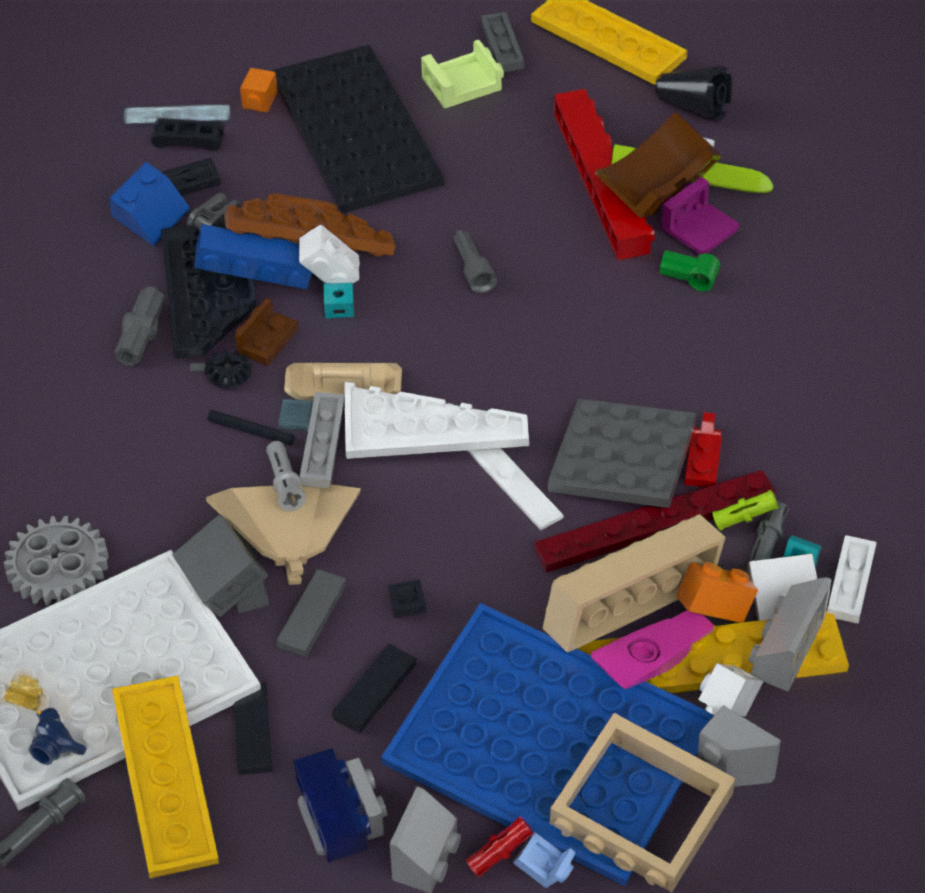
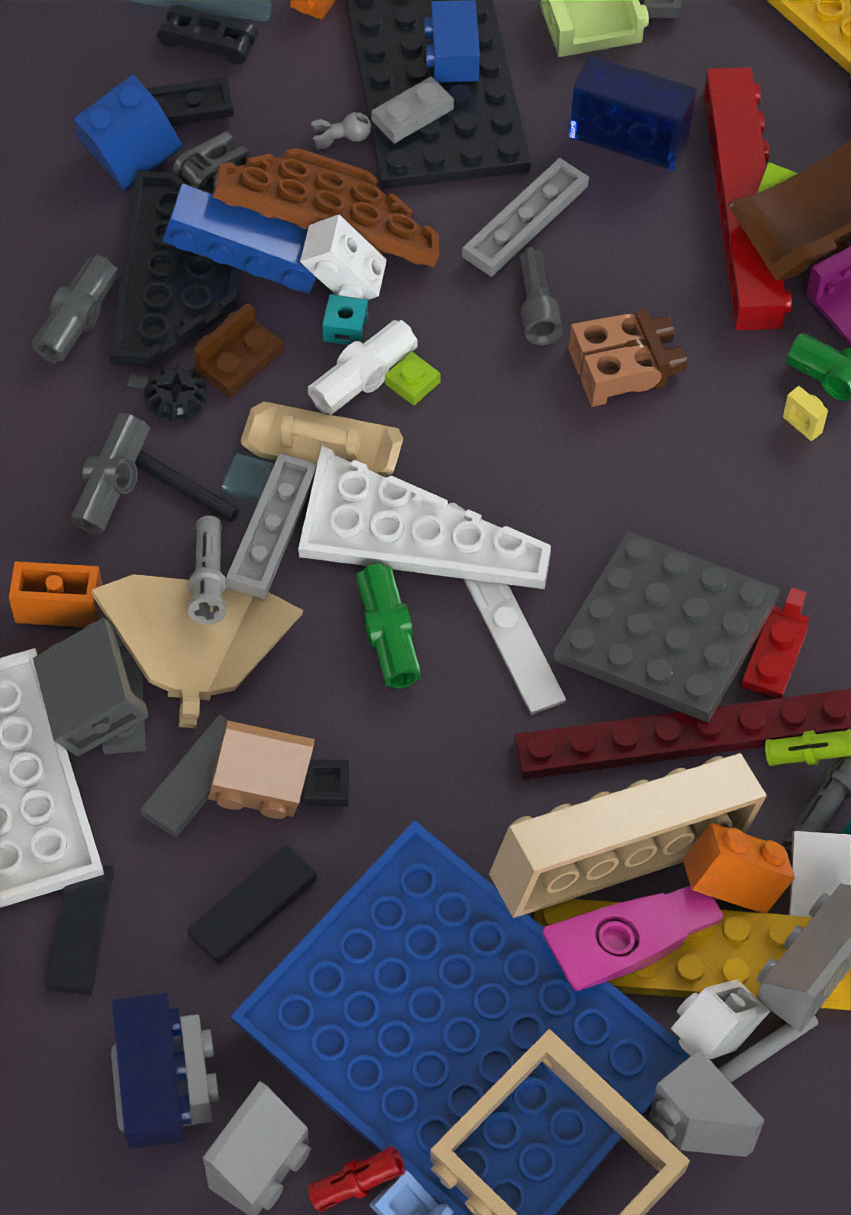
camera: 10 degrees right, 10 degrees up
(177, 510) = (54, 594): none -> orange brick
(195, 427) = (109, 474): none -> dark grey piece
(311, 175) = (354, 127): none -> light grey arm
(351, 155) = (412, 109): none -> light grey plate
(359, 327) = (362, 367): none -> white piece
(359, 593) = (260, 770): none -> slope
(369, 106) = (454, 41): none -> blue brick
(397, 329) = (412, 378): none -> lime plate
(424, 490) = (388, 626): none -> green piece
(449, 212) = (525, 217): none -> light grey plate
(508, 131) = (631, 112): none -> clear blue brick
(544, 286) = (624, 354): none -> nougat hips
(682, 301) = (805, 413): none -> light yellow plate
(771, 704) = (763, 1050): none -> light grey bar

